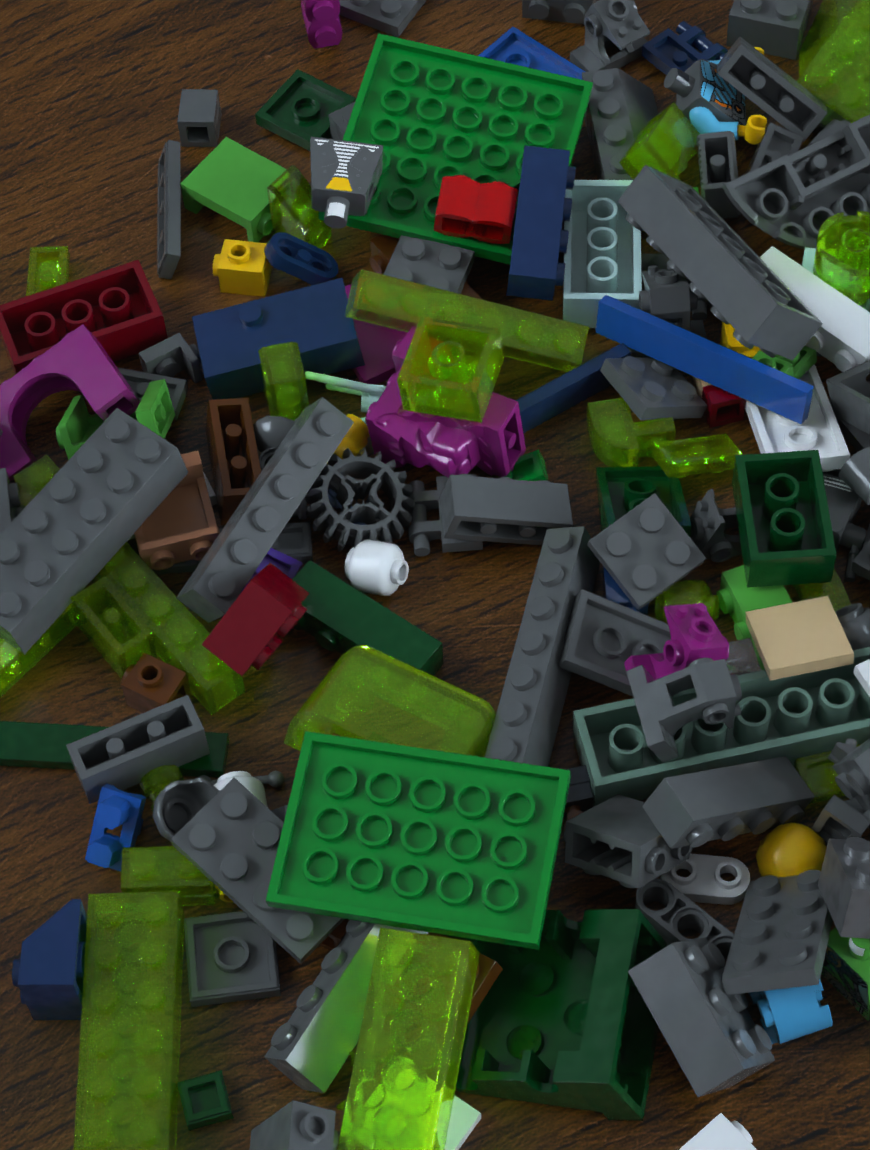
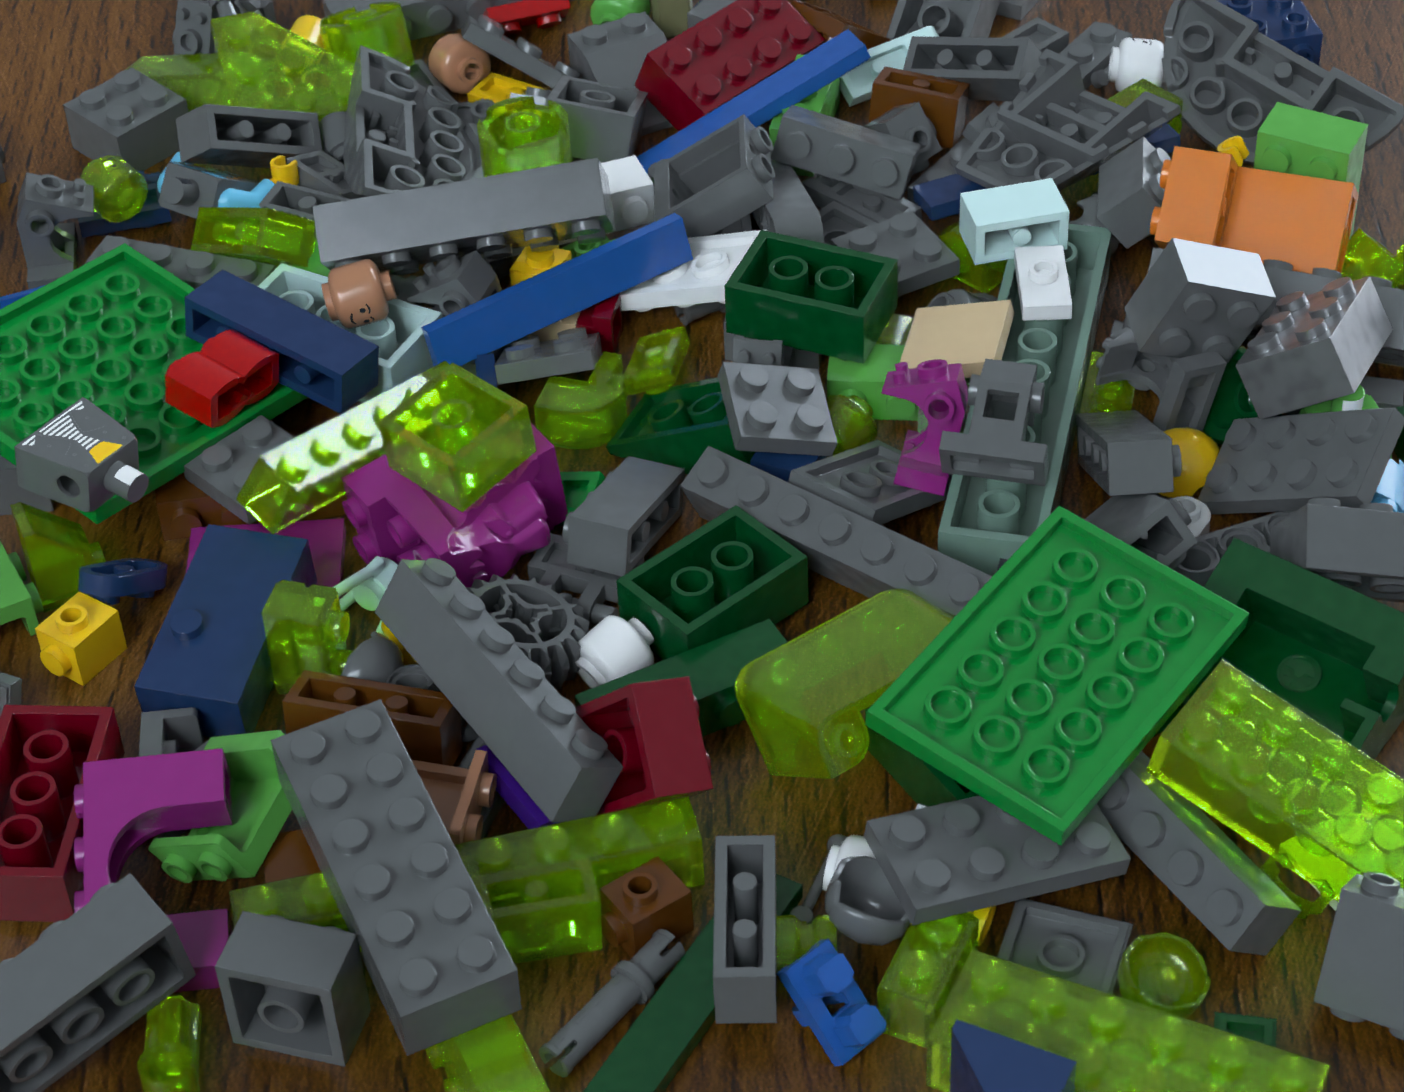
camera: 65 degrees left, 15 degrees down
(92, 708) = (629, 985): none -> dark grey pin
(225, 1023) = (1163, 974): none -> clear neon green hair
(461, 596) = (714, 584): none -> dark green brick
(610, 240) = (358, 293): none -> nougat head
(669, 43) = (117, 188): none -> clear neon green head

